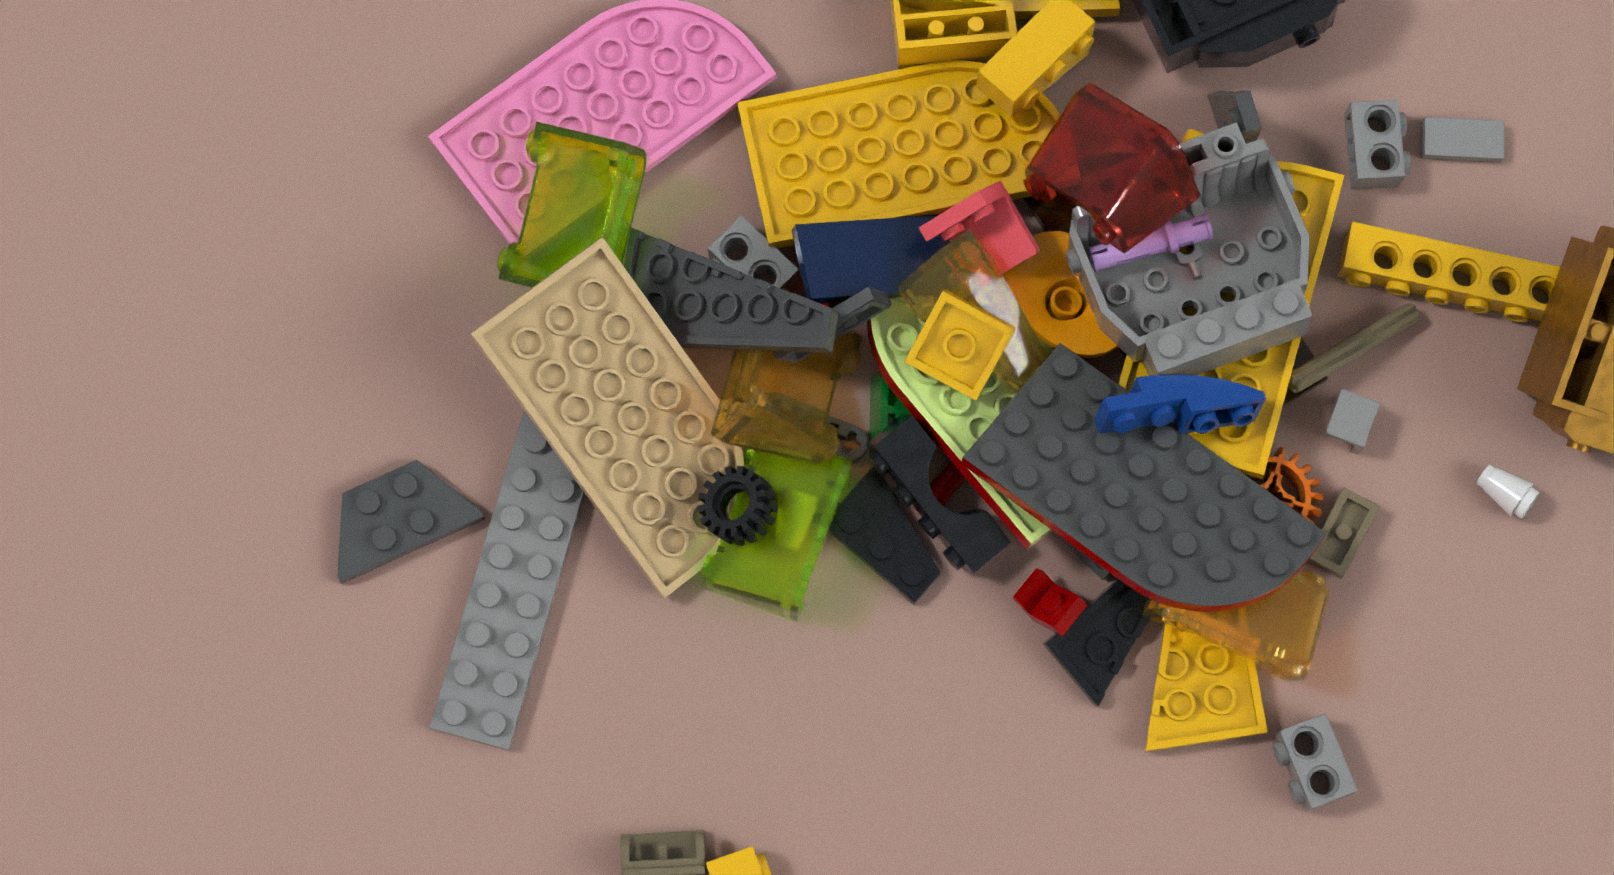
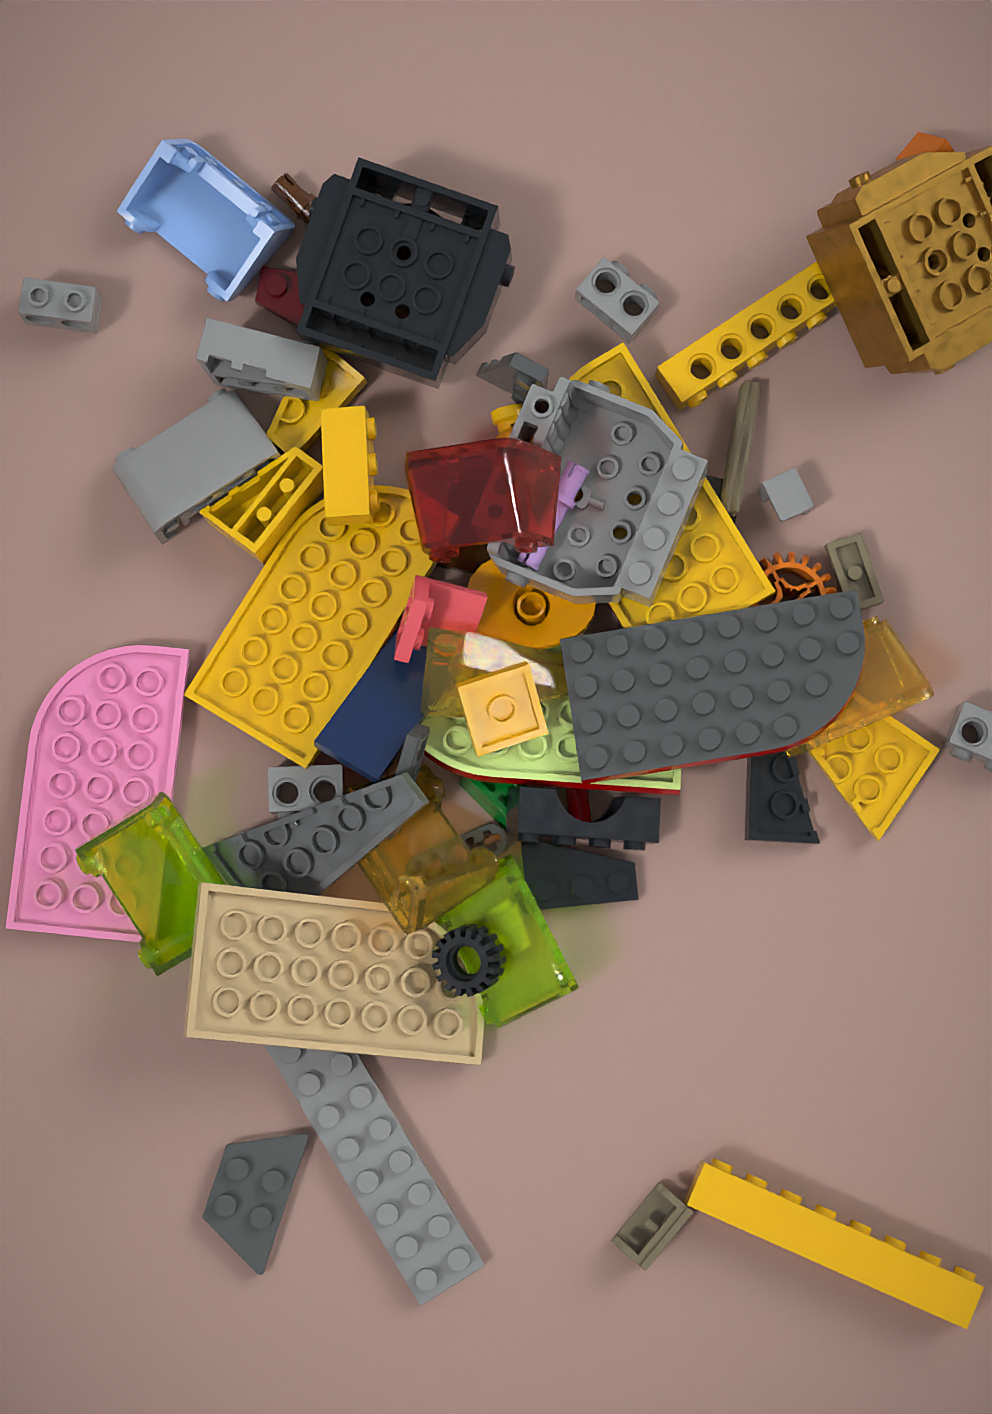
camera: 50 degrees left, 5 degrees up
(1049, 603) = (723, 810): red bracket -> none
(1189, 400) = (682, 595): blue slope -> none
(1462, 139) = (666, 239): light grey tile -> none
(1508, 491) = (927, 439): white cone -> none

